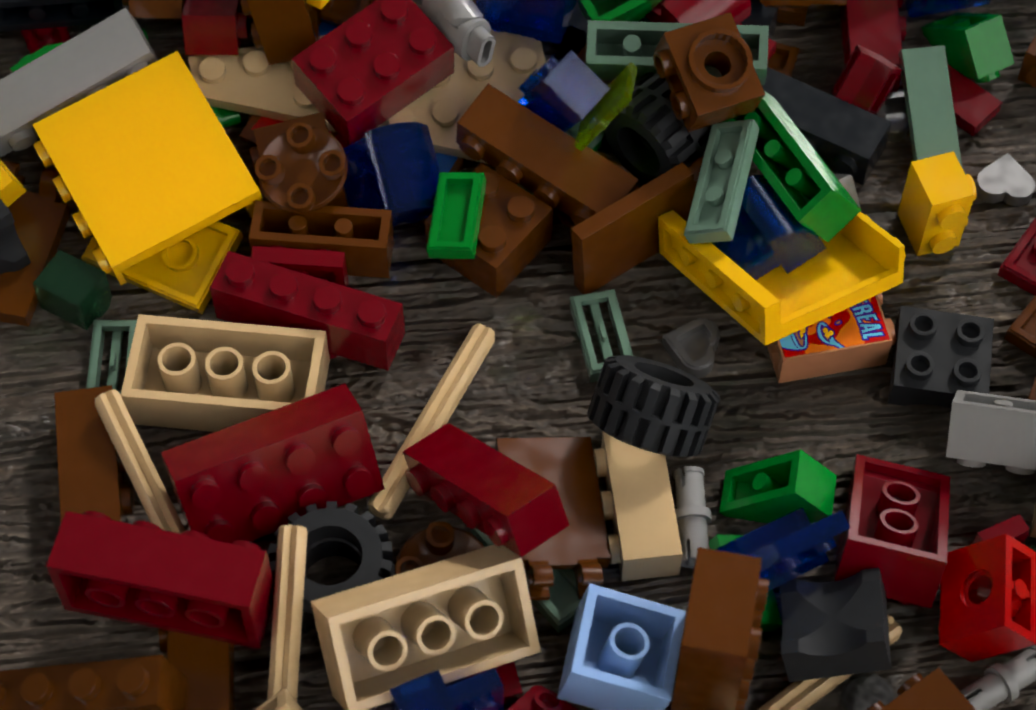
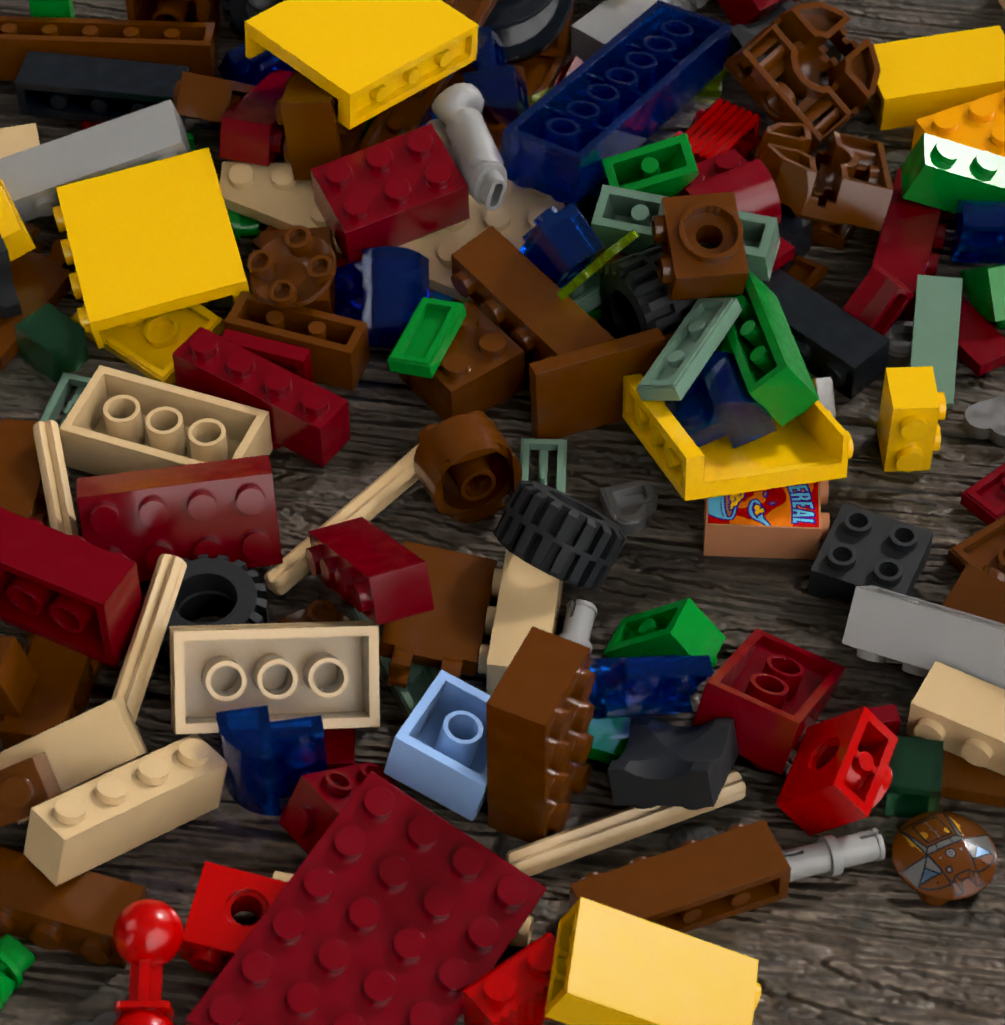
camera: 15 degrees right, 10 degrees down
(533, 345) = (466, 466): none -> reddish brown brick

